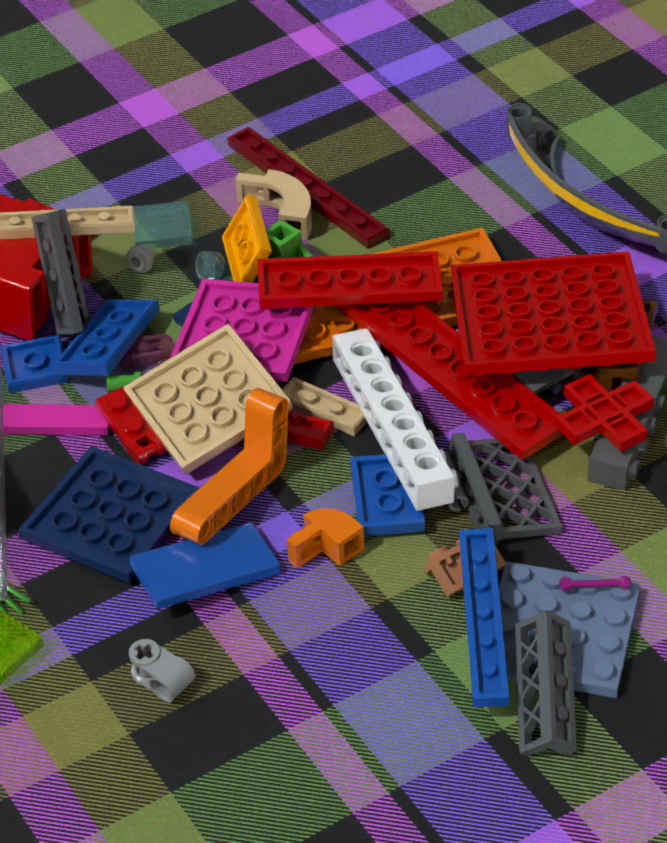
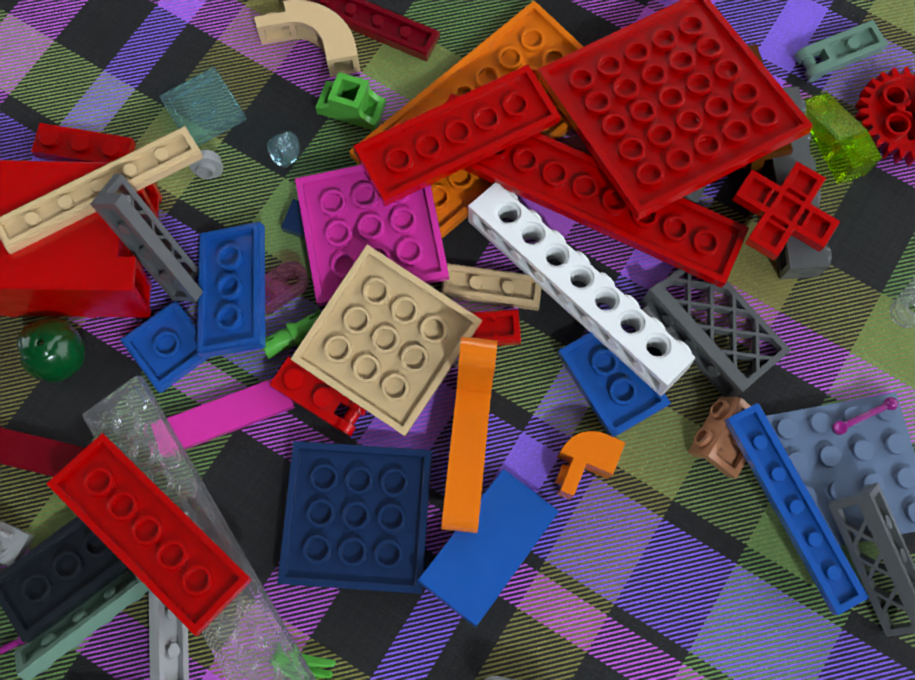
camera: 30 degrees left, 30 degrees up
(246, 241) = (314, 111): light orange tile -> none

